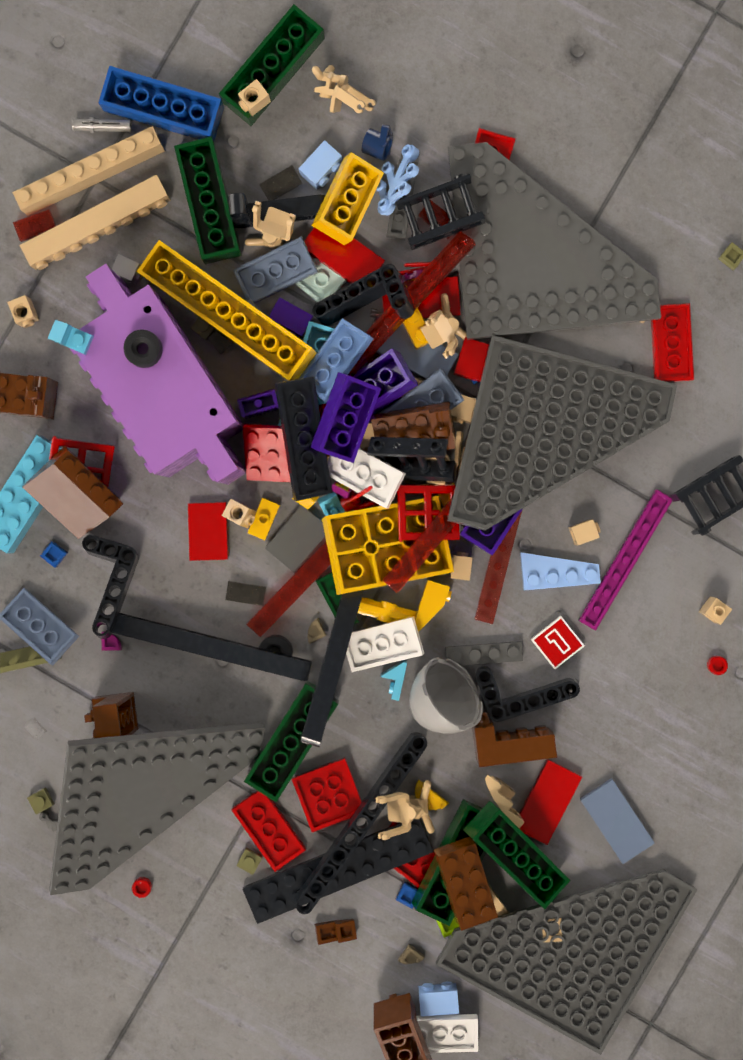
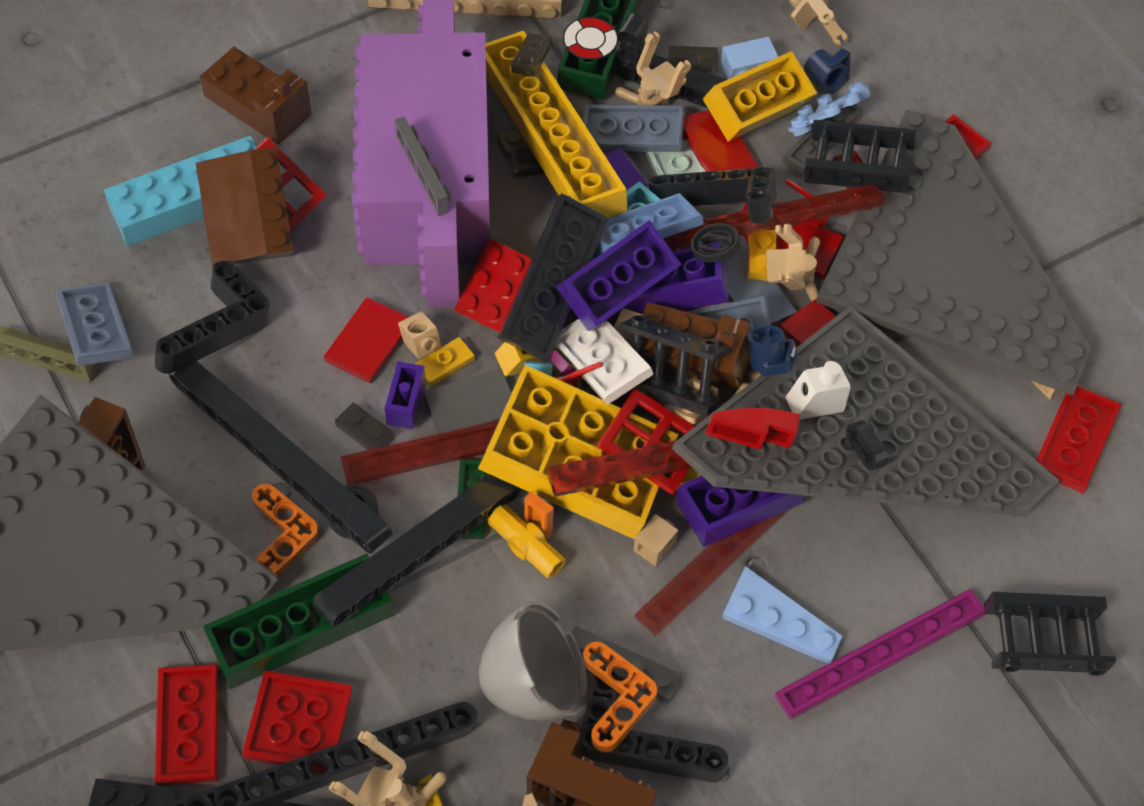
camera: 30 degrees right, 30 degrees down
(16, 307) = (326, 29): tan brick -> none
(54, 554) = (171, 269): blue tile -> none
(70, 337) = (365, 33): medium azure slope -> none
(111, 643) = (161, 394): magenta tile -> none
(131, 345) = (435, 91): black tyre -> none
(173, 420) = (426, 173): none -> dark grey plate
(179, 262) = (531, 55): none -> clear smoke plate
(208, 219) = (590, 38): none -> sticker
(249, 861) = (131, 750): olive plate -> none
(250, 688) = (291, 532): none -> orange beam
(257, 561) = (405, 395): none -> dark purple brick
(258, 404) = (519, 234): dark purple brick -> none
(315, 631) = (418, 515): dark tan tile -> none
(381, 345) = (714, 233): none -> black piece
(384, 644) = (497, 569): white plate -> none
(386, 597) = (539, 513): none -> orange tile
(395, 673) = (487, 618): medium azure slope -> none
(431, 602) = (588, 562): yellow slope -> none
(467, 414) = (768, 349): none -> dark blue piece
(491, 478) = (754, 426): none -> red slope
(499, 677) = (627, 688): none -> orange beam
(513, 427) = (819, 391): none -> white torso
(557, 642) = (730, 704): red tile -> none
(559, 444) = (866, 445): none -> black beam
(584, 532) = (844, 585): tan brick -> none
(715, 610) = (975, 778): tan brick -> none

